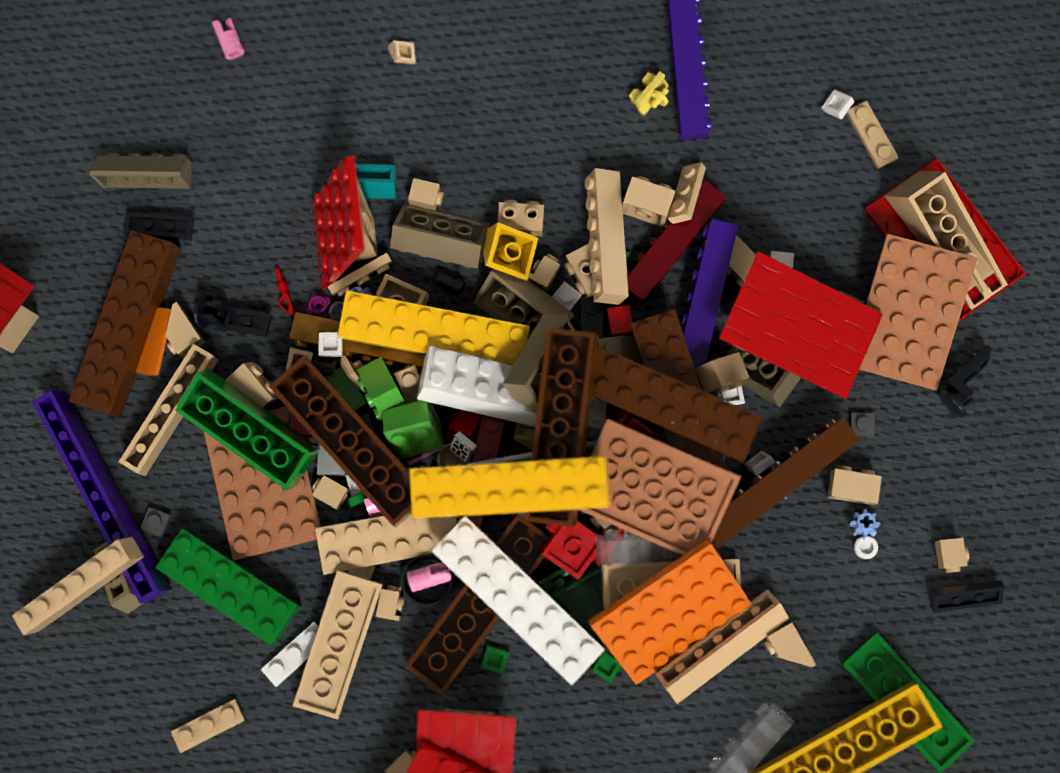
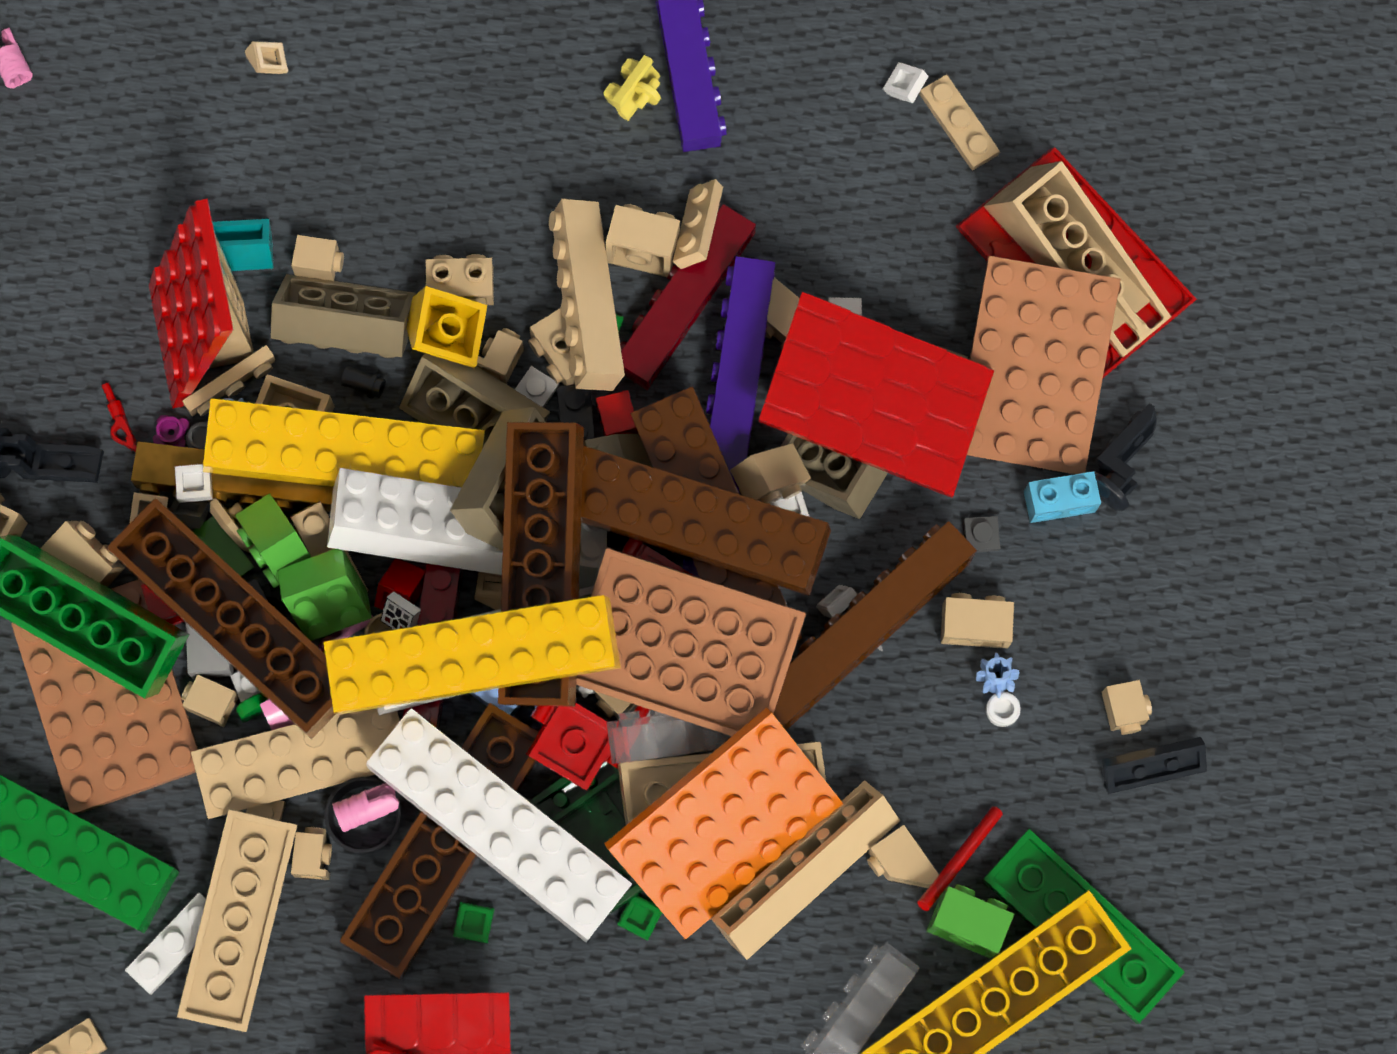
camera: 15 degrees left, 5 degrees down
(828, 649) = (960, 858): none -> red bar
(834, 695) = (970, 921): none -> bright green brick
(920, 404) = (1062, 497): none -> medium azure brick

